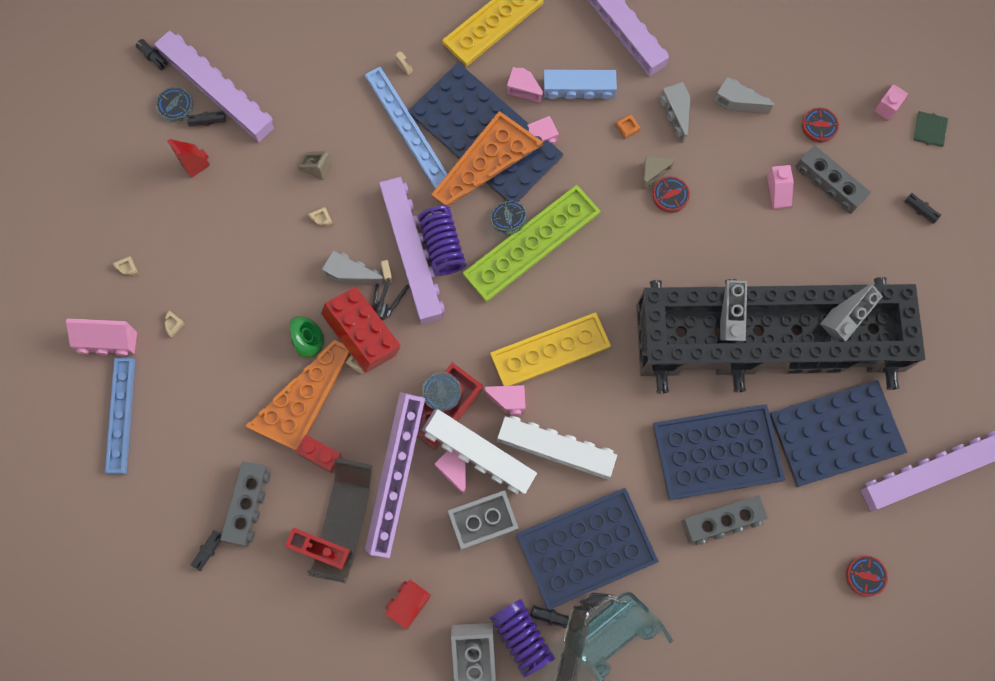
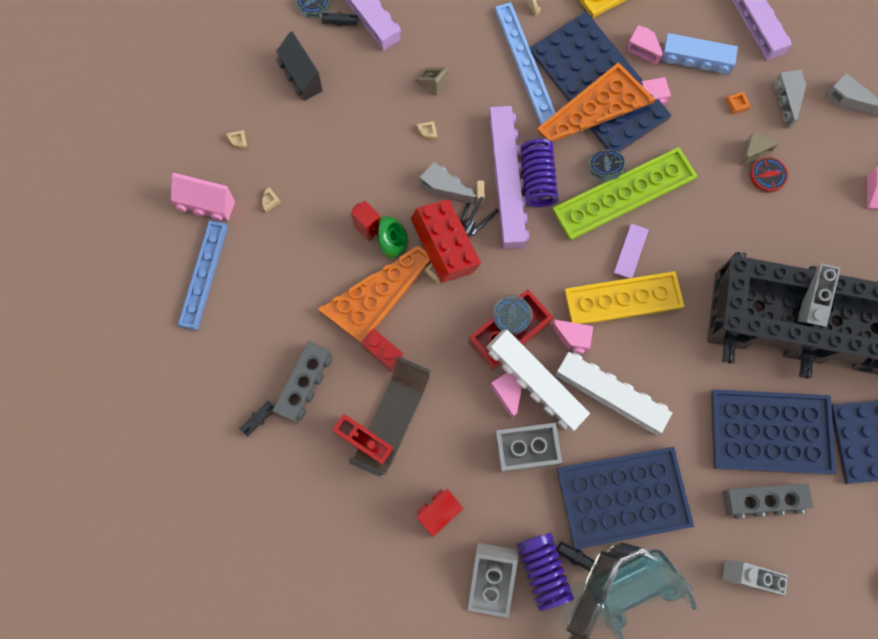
camera: 15 degrees right, 0 degrees up
(174, 180) = (298, 67): none -> black slope
(189, 156) = (317, 48): red slope -> none
(275, 325) = (365, 220): none -> red brick
(394, 475) = (451, 384): lavender brick -> none
(549, 301) = (630, 251): none -> lavender tile
(726, 597) = (754, 577): none -> light grey slope

